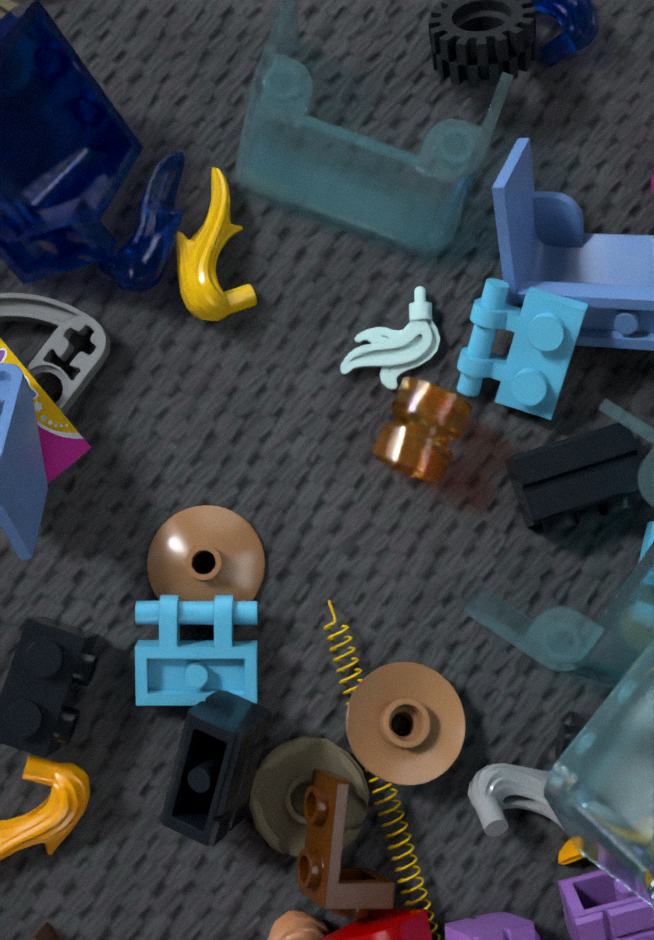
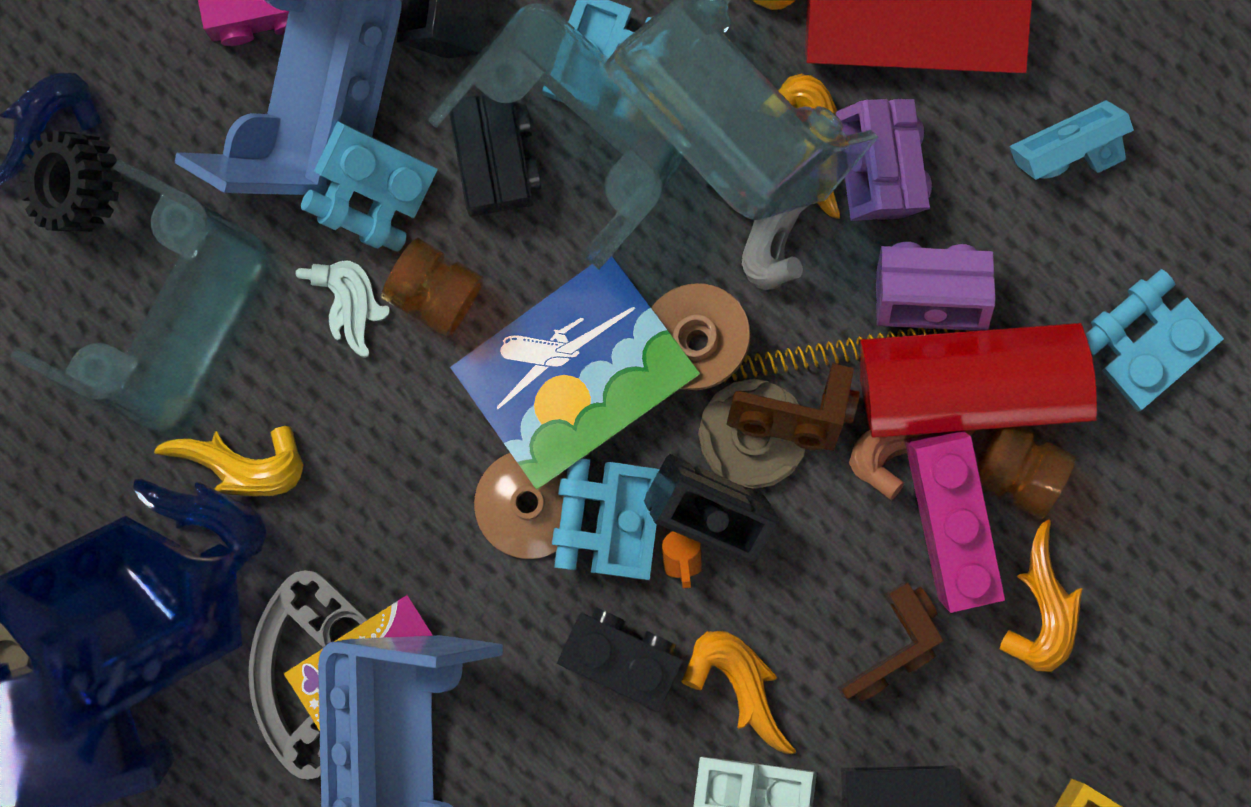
camera: 80 degrees left, 0 degrees up
(160, 737) = (681, 557): none -> orange piece
(351, 596) = (574, 371): none -> sticker

